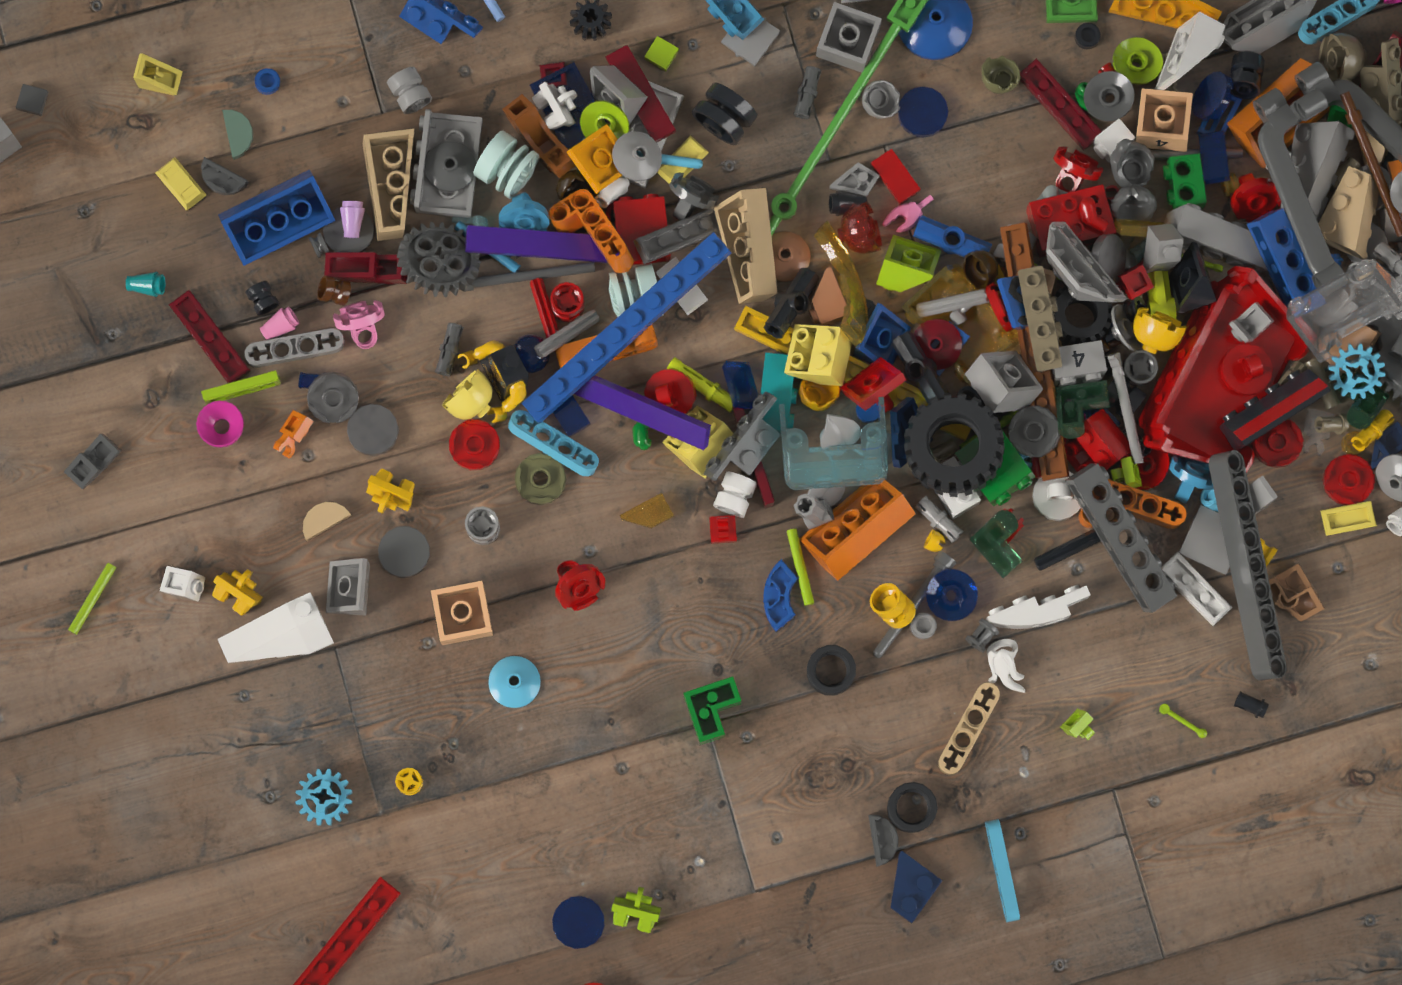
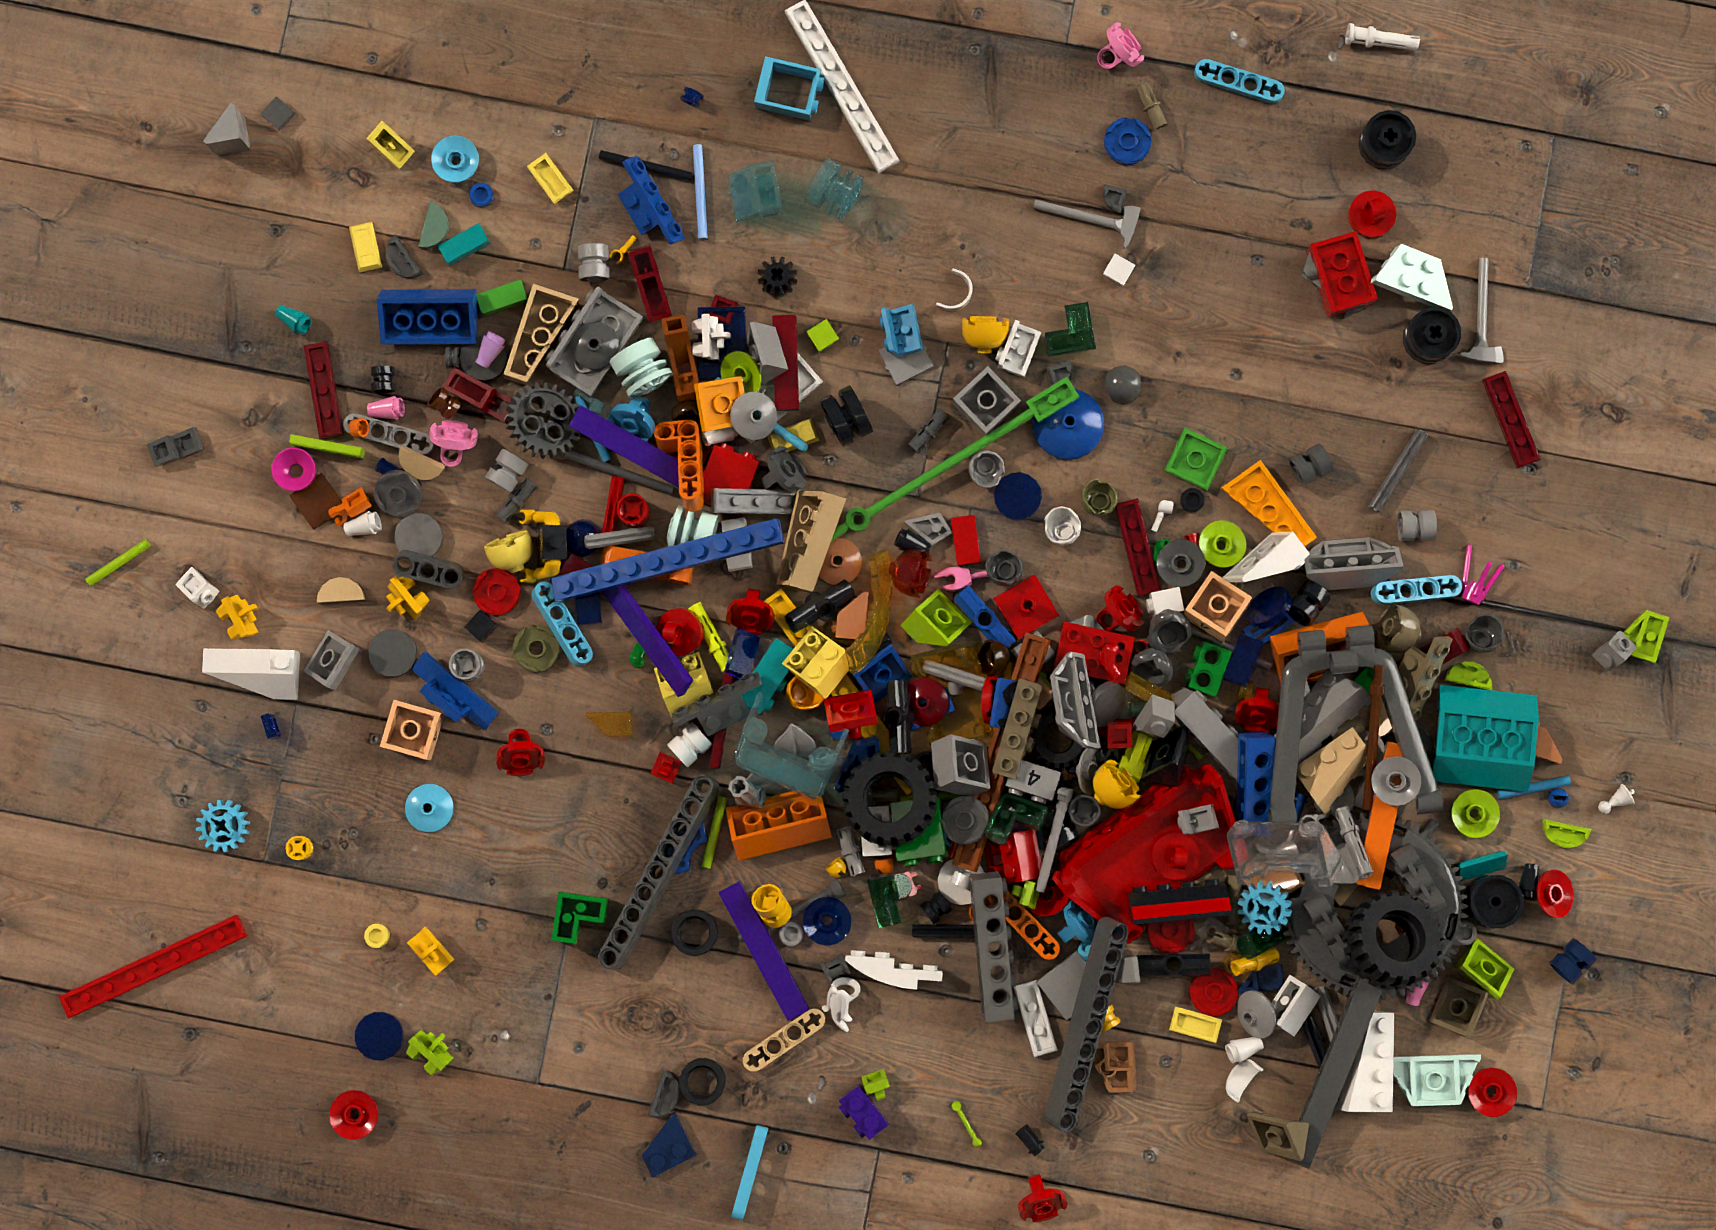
camera: 30 degrees right, 5 degrees up
(224, 47) = (451, 148): none -> medium azure dish
(256, 445) = (316, 501): none -> reddish brown piece
(263, 353) = (362, 430): none -> orange hinge
(275, 135) = (464, 244): none -> teal slope
(313, 444) = (365, 524): none -> white cone
(322, 679) = (270, 725): none -> clear blue tile
(326, 33) = (550, 178): none -> light yellow tile
(338, 167) = (502, 298): none -> bright green slope
(339, 360) = (418, 464): none -> tan tile
(411, 453) = (440, 566): none -> dark grey beam
(426, 324) = (506, 470): none -> light grey wheel
(430, 65) = (623, 250): none -> yellow hand
(472, 83) = (649, 283): none -> dark red slope
(476, 484) = (481, 626): none -> black slope
(482, 560) = (452, 694): none -> blue bracket
(526, 828) = (376, 935): none -> light yellow tile
(535, 381) = (574, 564): none -> dark red tile
(587, 814) = (430, 951): none -> yellow hips
(729, 342) = (750, 613): none -> red tile
(773, 641) = (648, 878): none -> dark grey beam
(906, 653) = (764, 950): none -> dark purple tile
(946, 183) = (1004, 568): none -> dark grey hair
(977, 515) = (884, 864): none -> orange hinge
(980, 117) = (1062, 526): none -> white hair
(984, 210) = (1026, 607): none -> red tile
(1048, 530) = (936, 907): none -> black wheel
(1065, 54) = (1164, 507): none -> white hand
(1080, 756) = (863, 1111): none -> dark purple brick
(1293, 755) = (1041, 1203): none -> red tile
(1313, 463) = (1189, 965): none -> black piece

